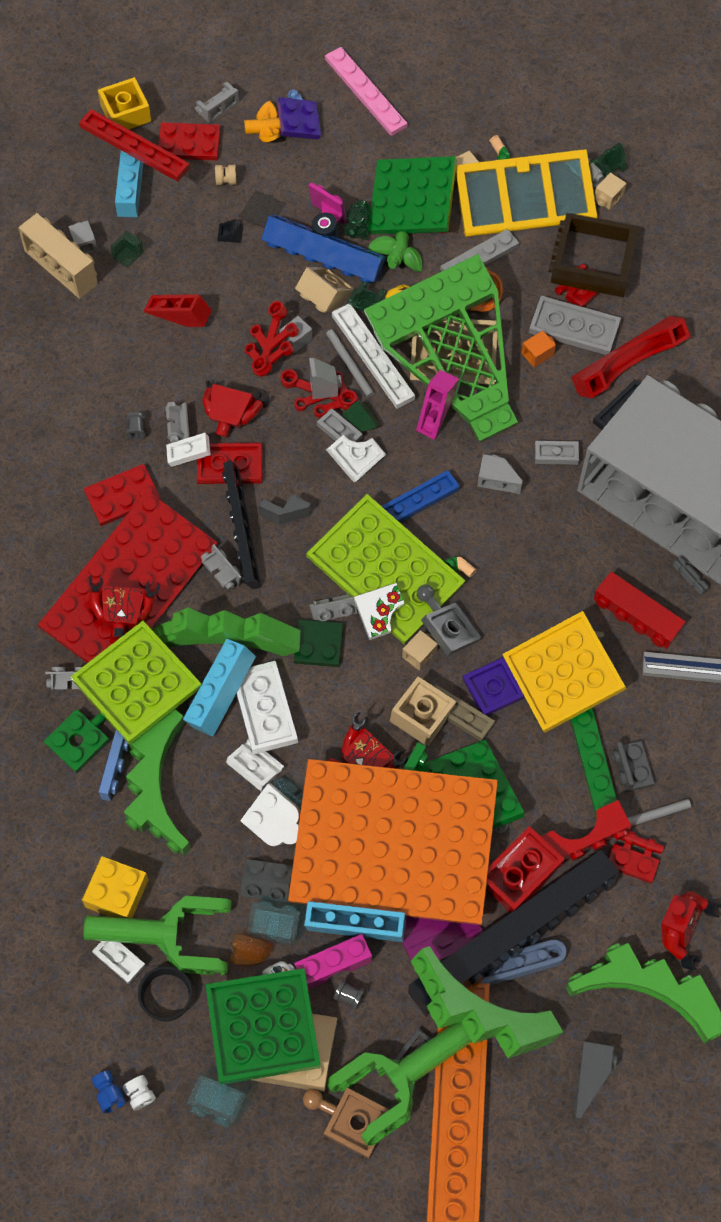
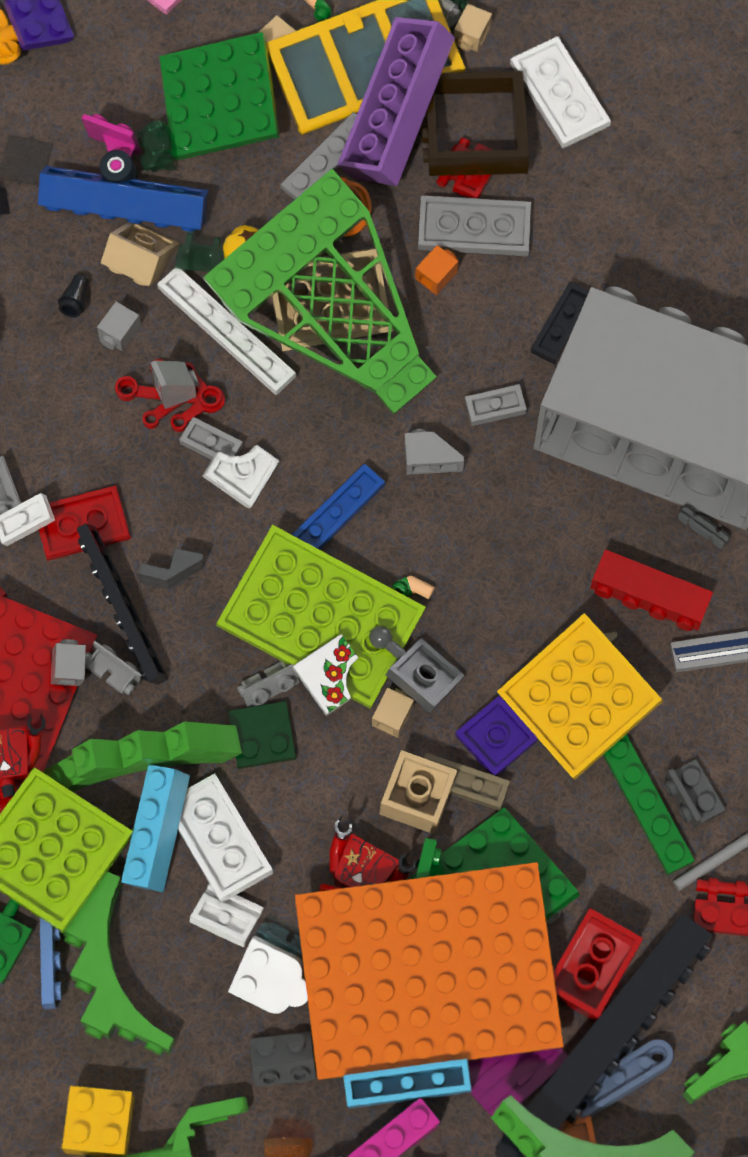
camera: 15 degrees left, 5 degrees up
(189, 555) = (68, 663): none -> light grey brick
(231, 407) = (62, 448): red torso -> none
(262, 309) = (74, 297): none -> black cone
(263, 364) = (90, 345): red plant -> none
(274, 922) = (306, 1110): clear light blue brick -> none
(350, 363) = (199, 347): light grey bar -> none
(361, 416) = (235, 418): dark green brick -> none
(397, 251) = (220, 178): bright green plant -> none
(437, 403) = (329, 380): dark pink slope -> none
(539, 224) = (396, 101): none -> medium lavender brick
(604, 371) = (523, 287): red arch -> none
(610, 824) = (685, 876): red arch -> none
(663, 249) = (560, 92): none -> white plate

